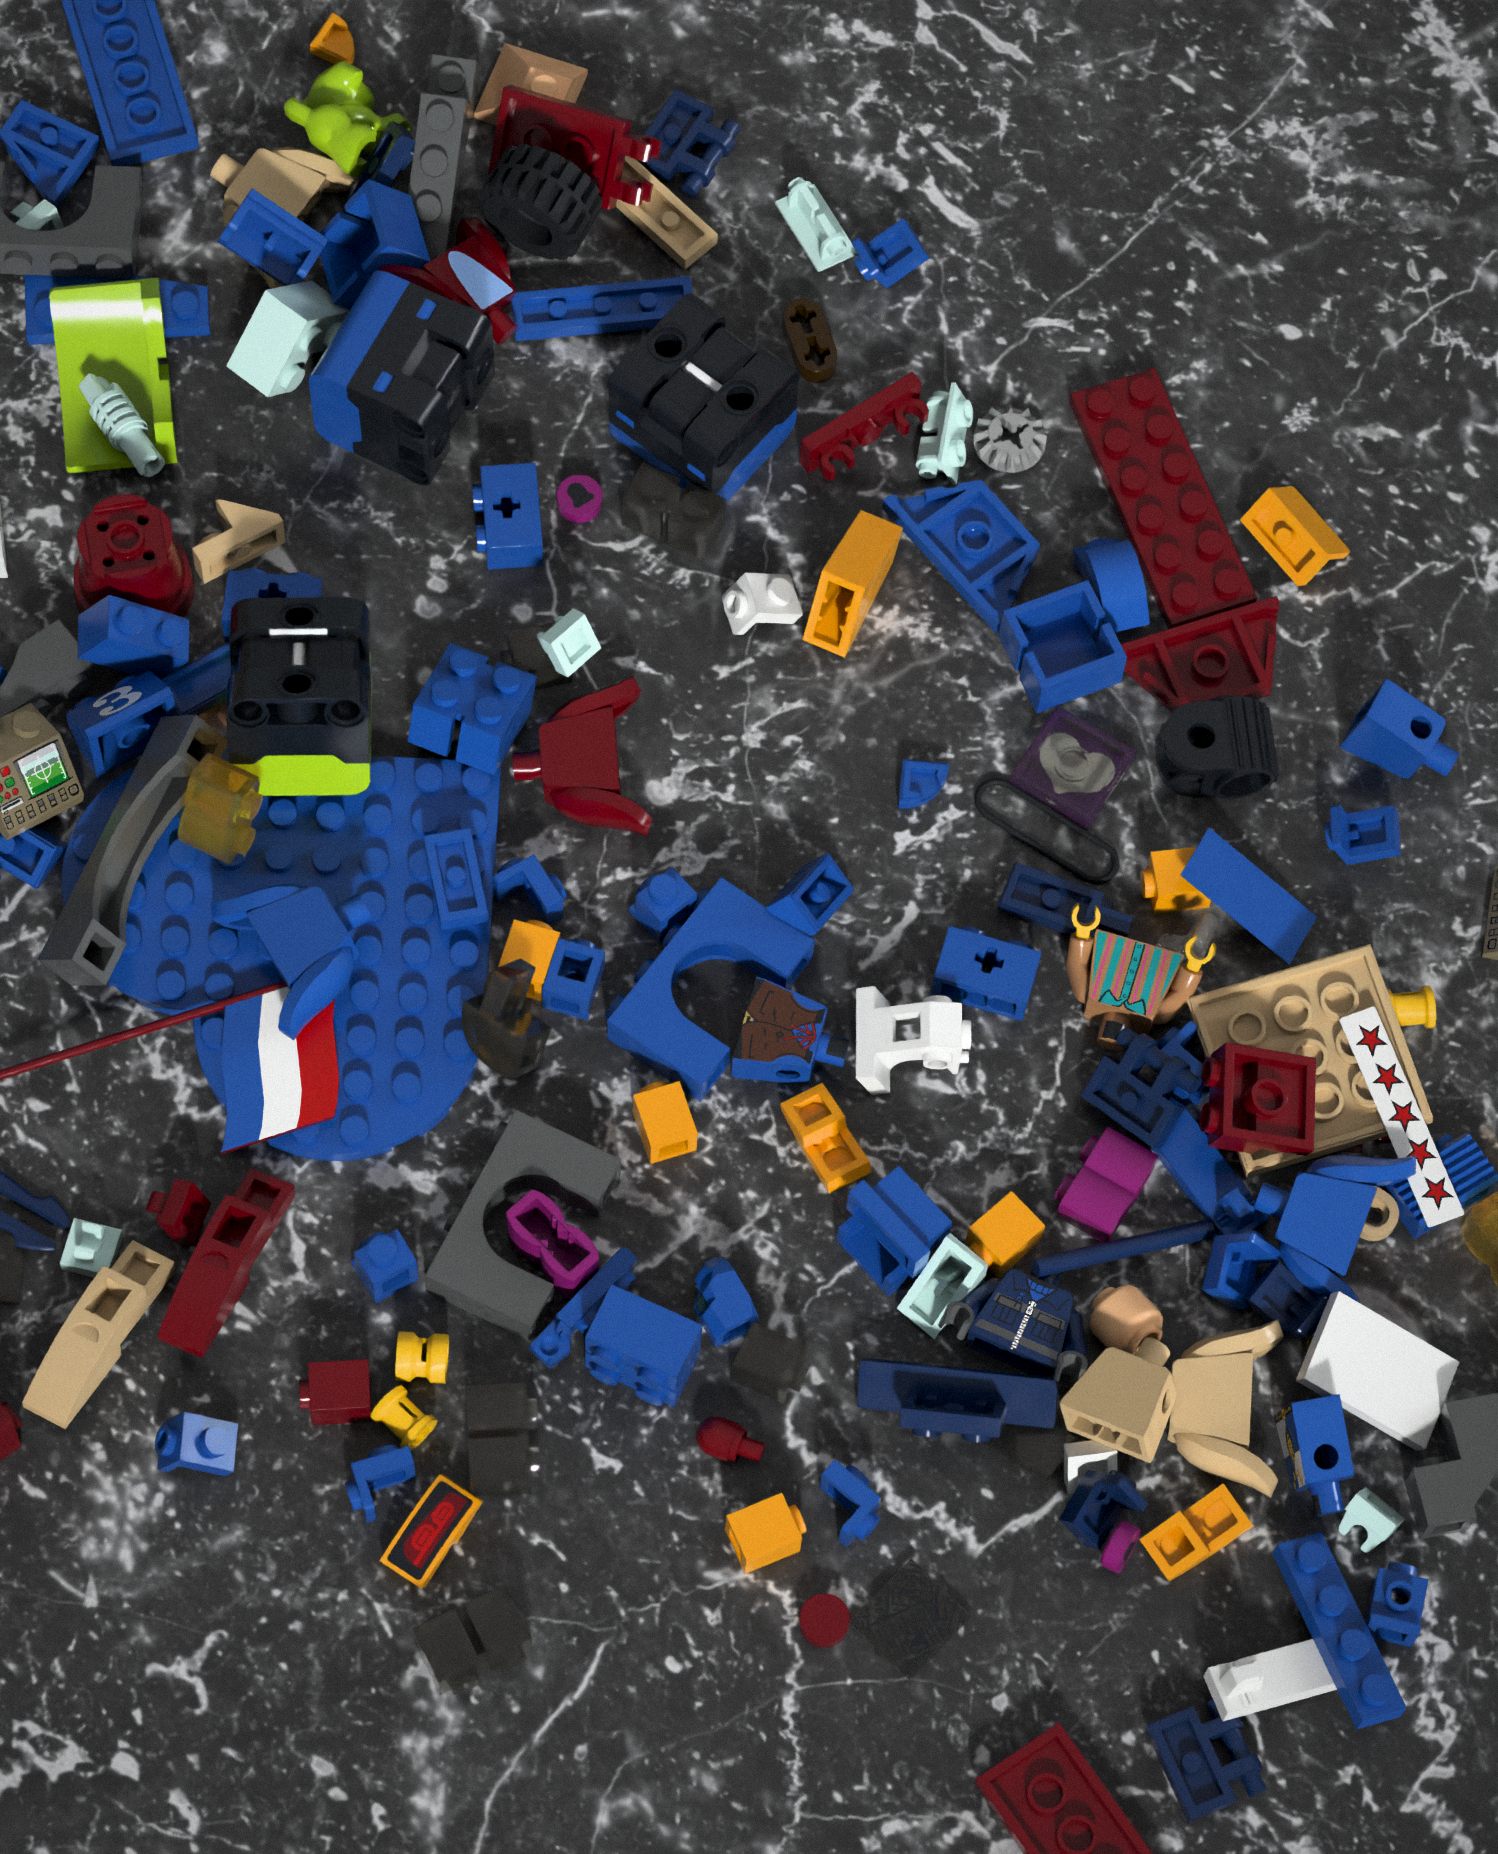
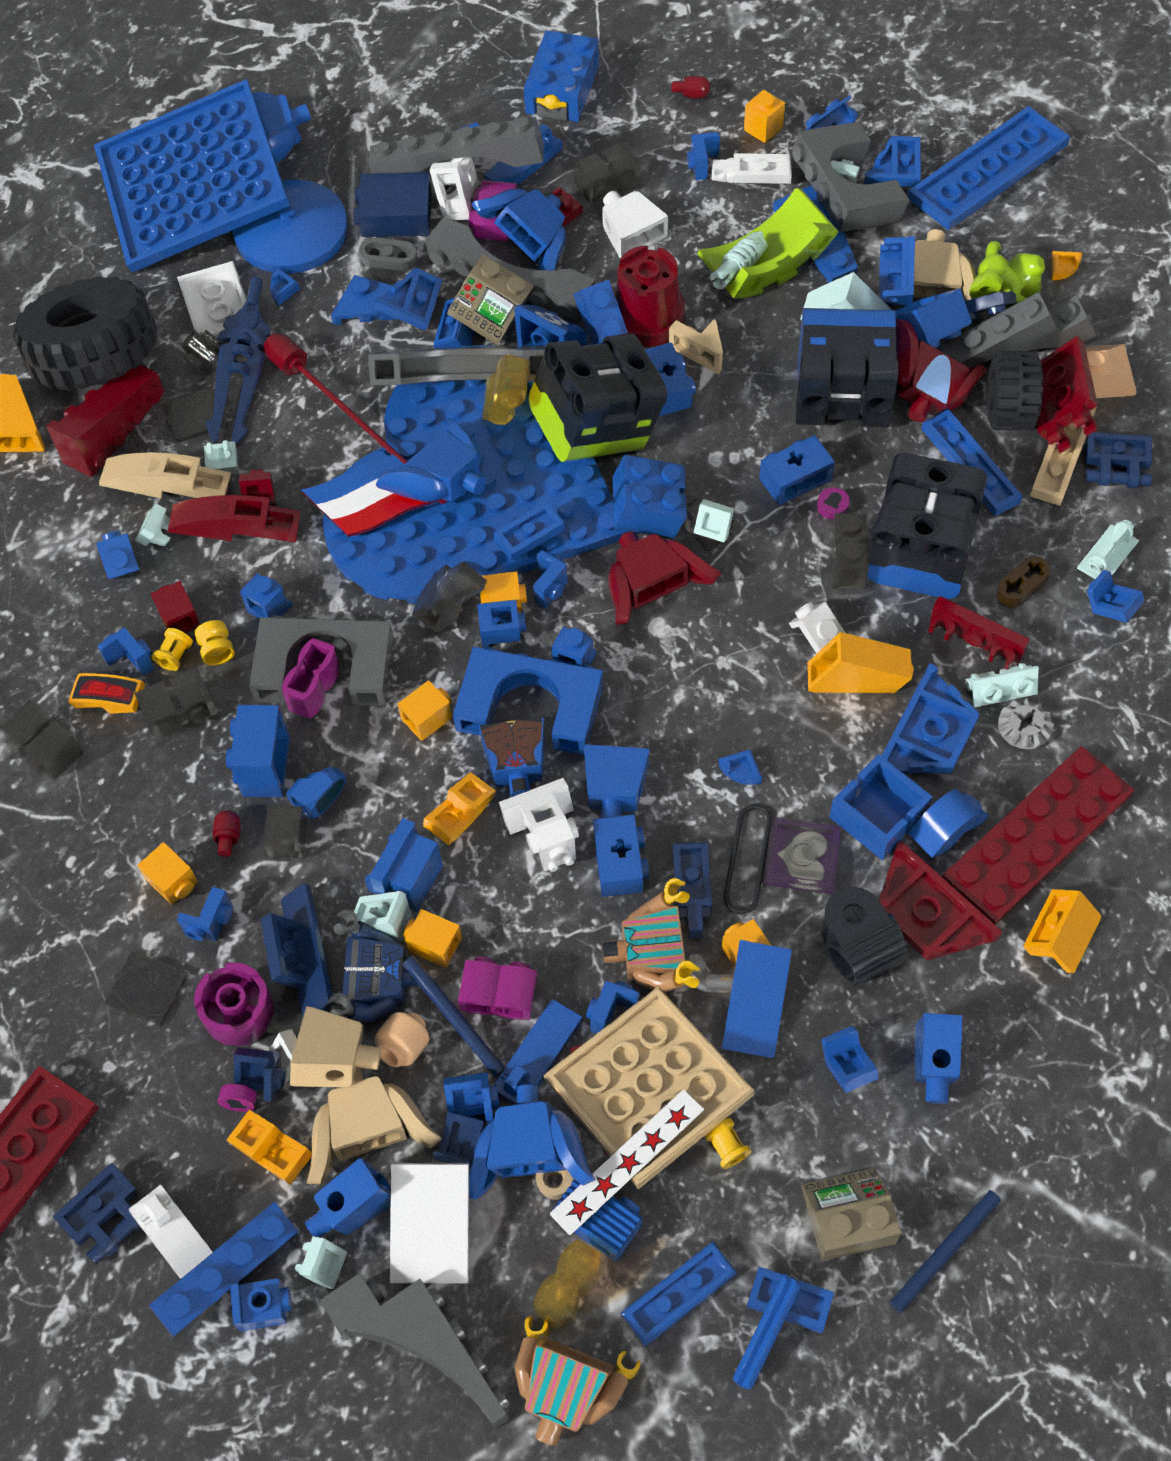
camera: 75 degrees right, 5 degrees down
(173, 1379) = (152, 525): none -> light aqua tile
(580, 1311) = (304, 721): blue hinge -> none
(812, 895) = (617, 729): blue slope -> none
(824, 1620) = (125, 935): dark red tile -> none
(877, 934) = (615, 778): none -> blue torso
(993, 1531) = (251, 1002): none -> magenta brick
(1134, 1101) = (565, 980): dark blue plate -> none
(1259, 1100) = (591, 1056): dark red plate -> none

